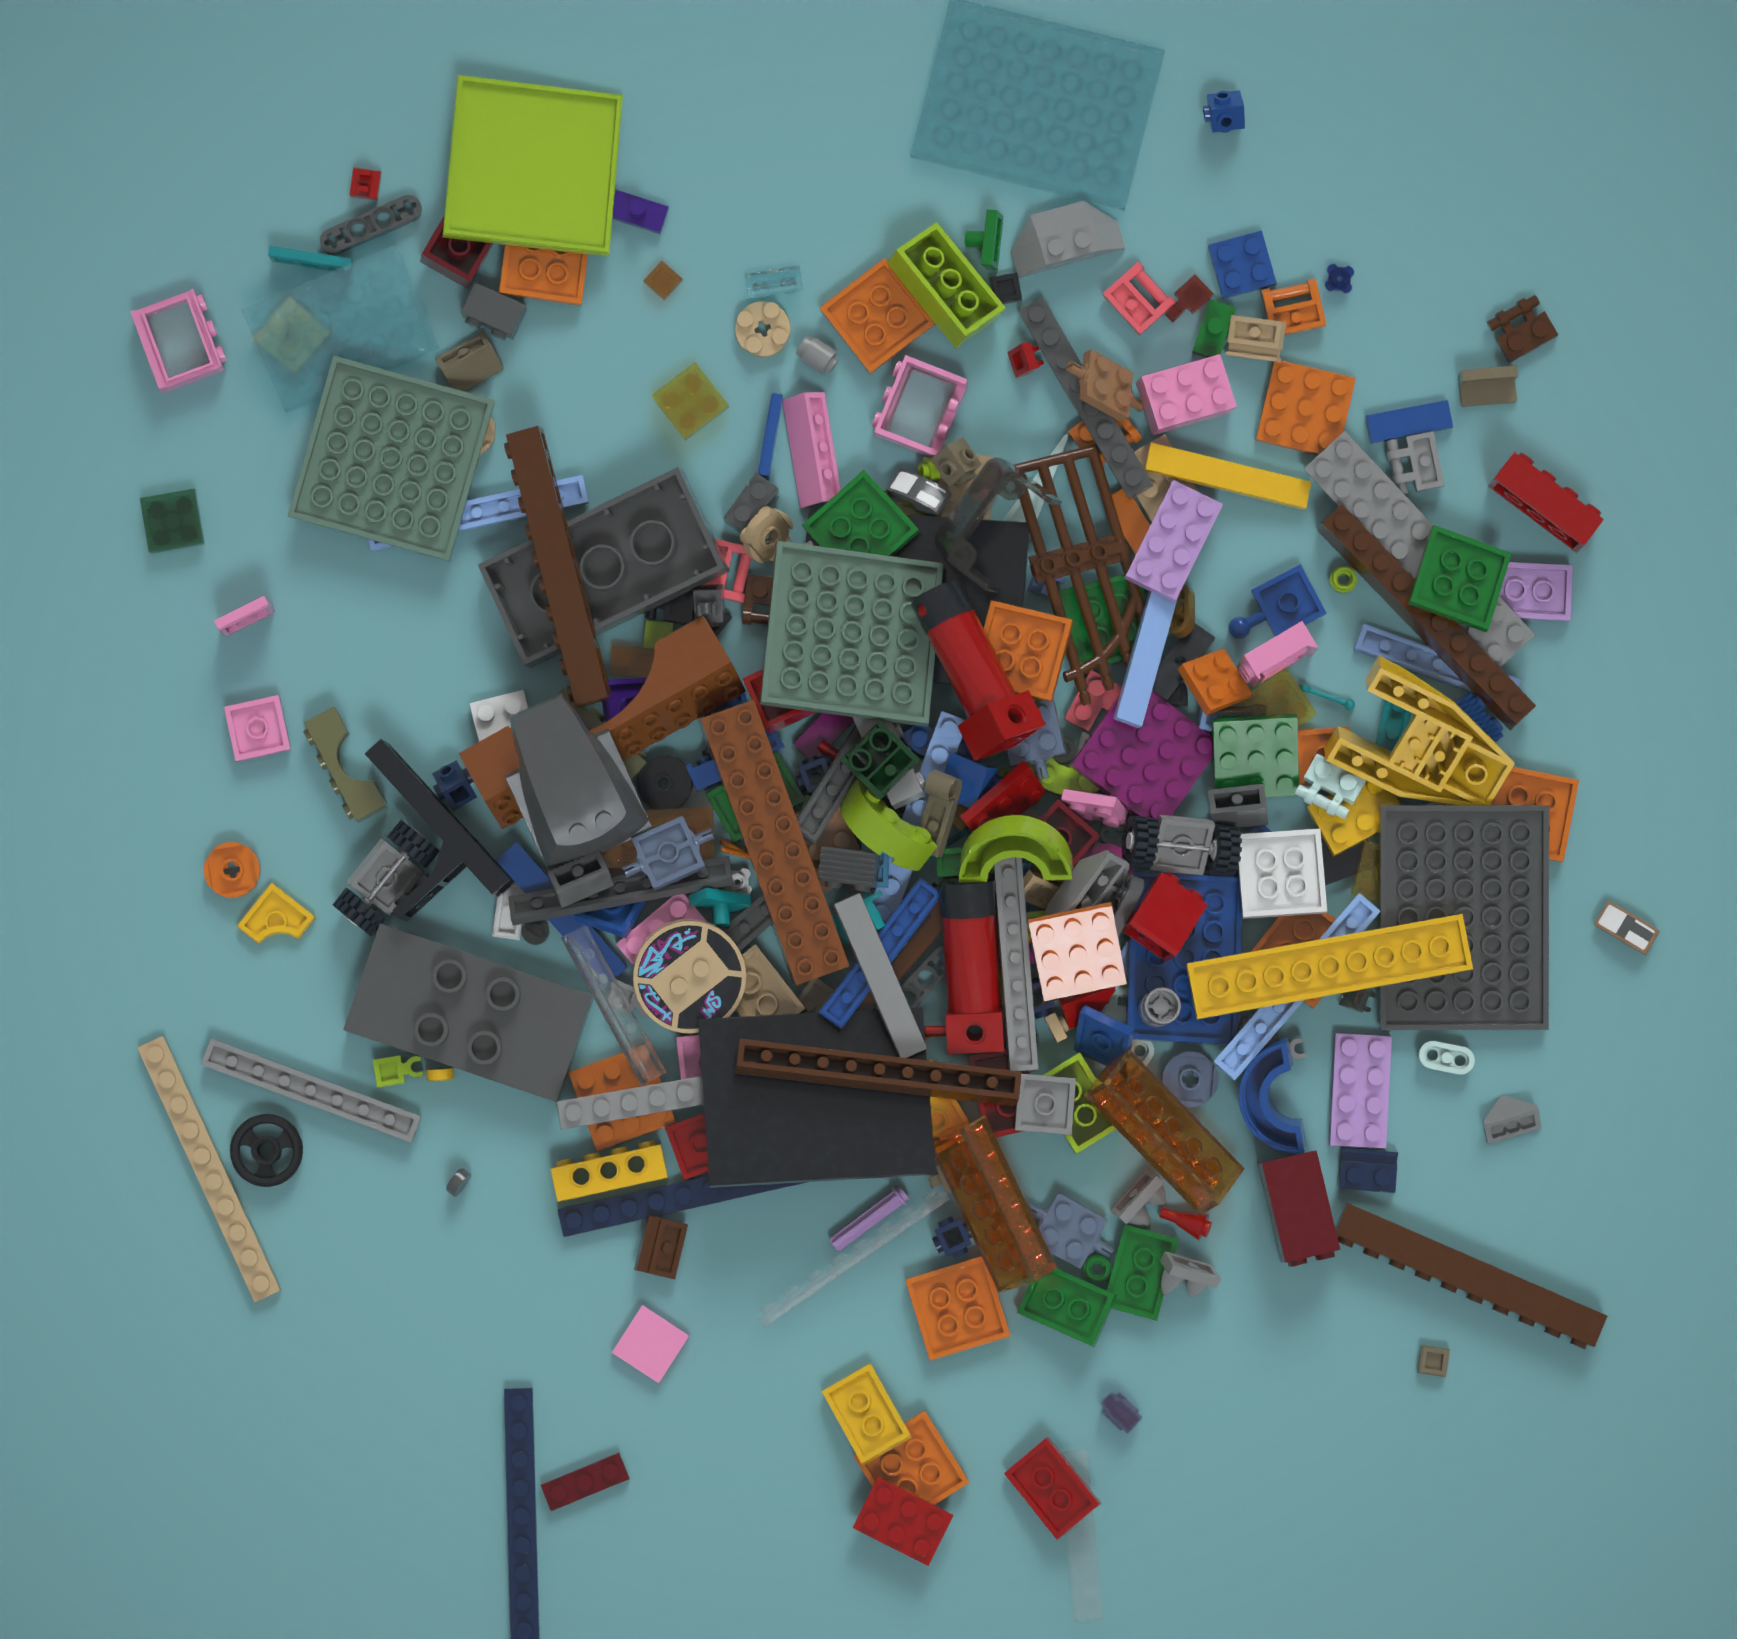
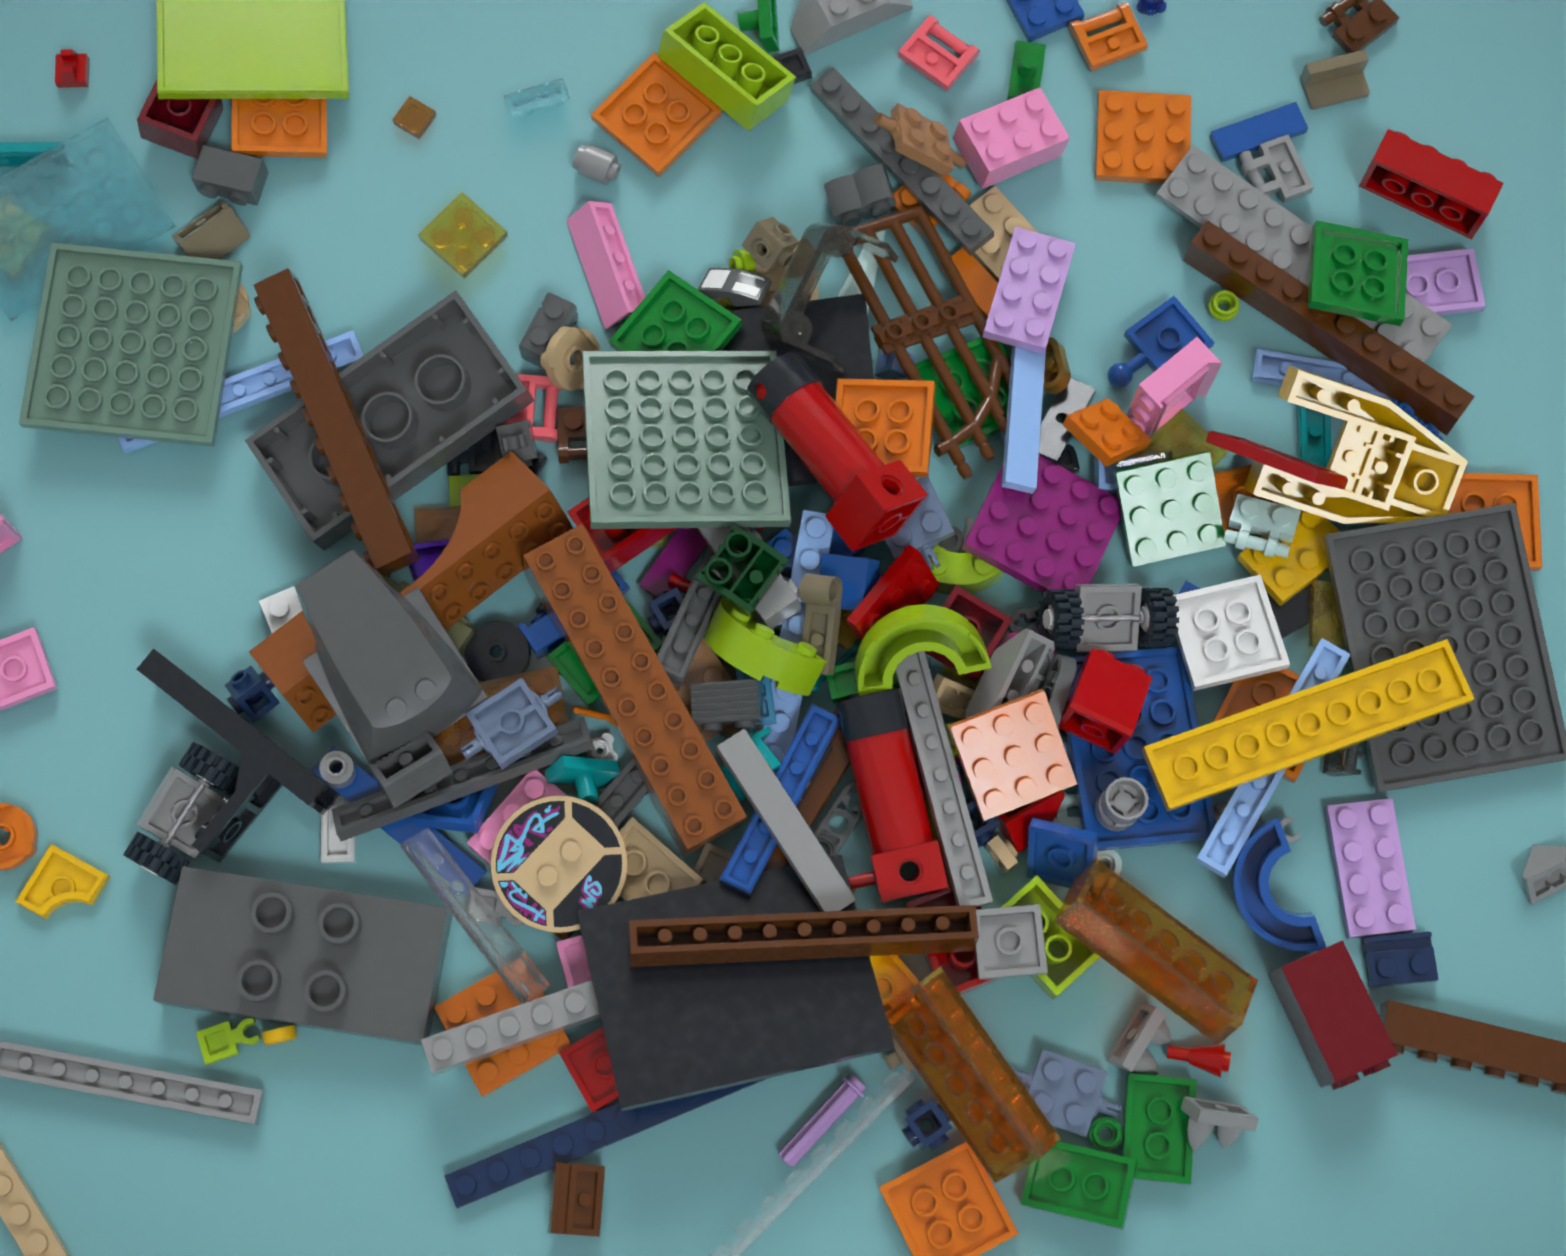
camera: 10 degrees left, 10 degrees down
(288, 1139) = (81, 1196): black wheel -> none
(328, 734) = (99, 662): olive arch -> none
(369, 221) = (85, 115): dark grey beam -> none
(458, 1182) = (319, 1163): dark grey tile -> none
(509, 866) = (345, 776): none -> light grey brick
(535, 932) = (371, 848): clear smoke tile -> none
(568, 1189) = (453, 1148): yellow brick -> none
(639, 212) = (377, 51): dark purple tile -> none
(770, 315) = (535, 132): tan plate -> none
(770, 435) = (558, 252): blue tile -> none
(920, 406) = (719, 197): window -> none
(1023, 359) = (825, 133): red tile -> none
(1044, 424) = (860, 195): none -> dark grey brick
(1085, 715) = (965, 494): coral plate -> none
(1096, 807) = (1003, 590): bright pink plate -> none
(1191, 297) = (993, 41): clear red plate -> none
(1201, 1068) = (1180, 873): sand blue plate -> none
(1227, 476) = (1074, 216): yellow tile -> none
(1239, 806) = (1163, 564): dark grey brick -> none
(1256, 338) = (1075, 69): tan plate -> none
(1349, 703) = (1258, 438): teal hinge -> none
(1352, 735) = (1277, 459): none -> red tile
(1433, 1361) = (1529, 1175): dark tan tile -> none
(1445, 1057) = (1459, 811): light aqua plate -> none

